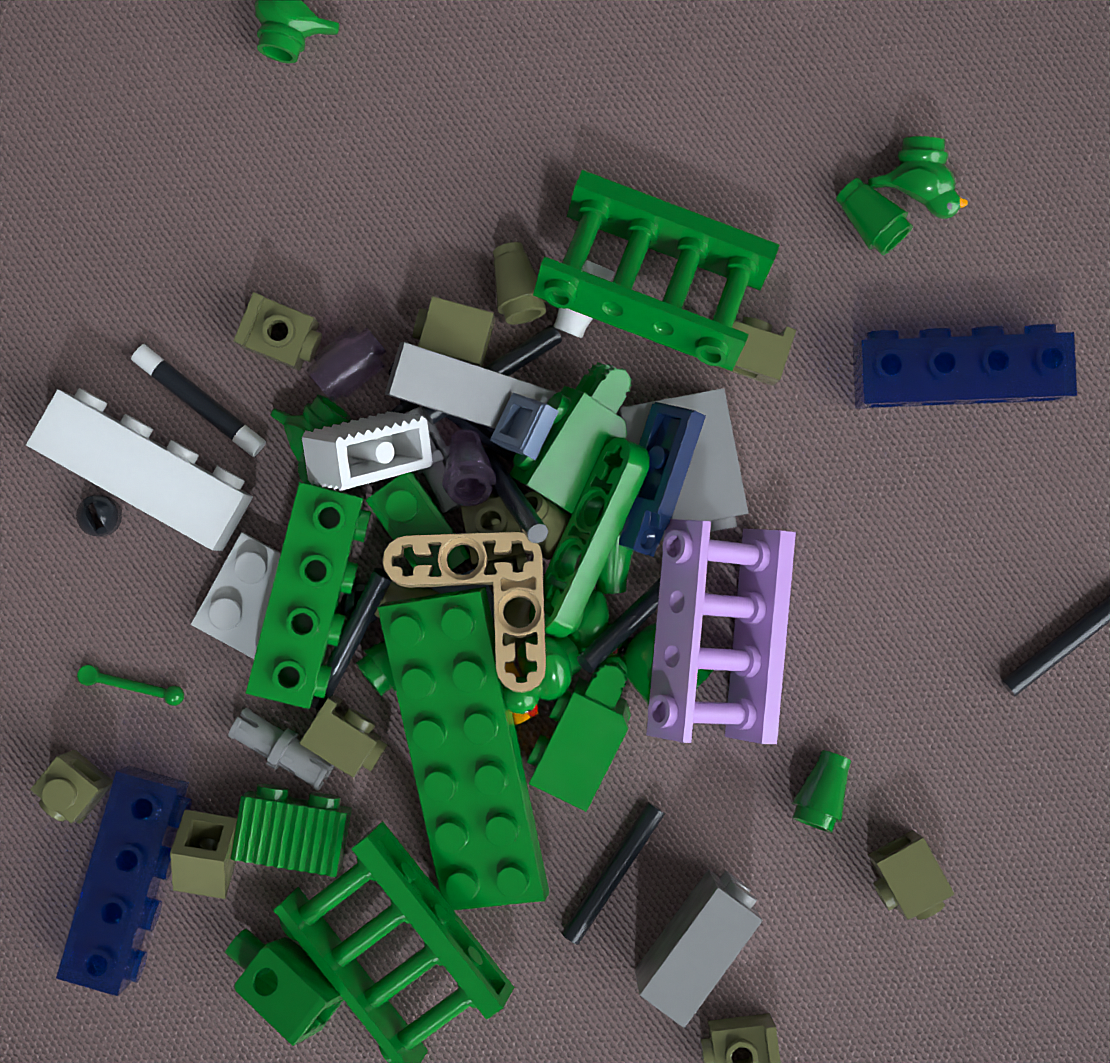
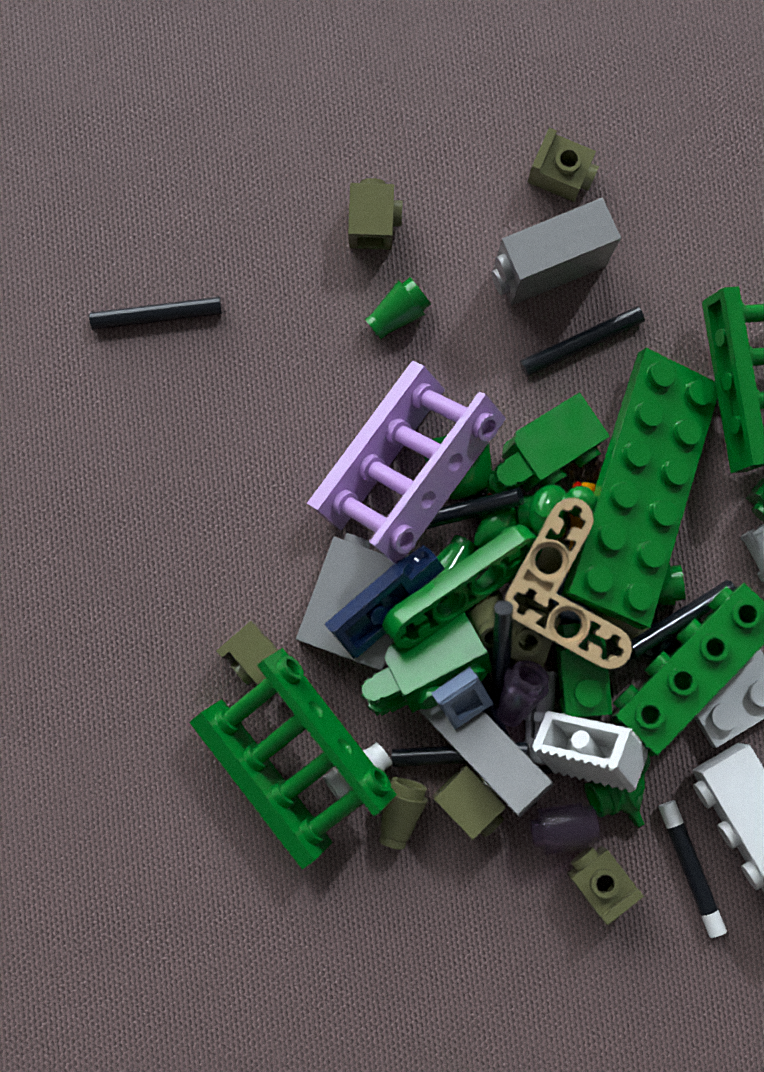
camera: 150 degrees left, 5 degrees down
(344, 738) = (725, 549): olive brick -> none
(874, 217) = (104, 703): green cone -> none
(924, 176) = (49, 710): green animal -> none
(964, 368) = (110, 549): clear blue brick -> none

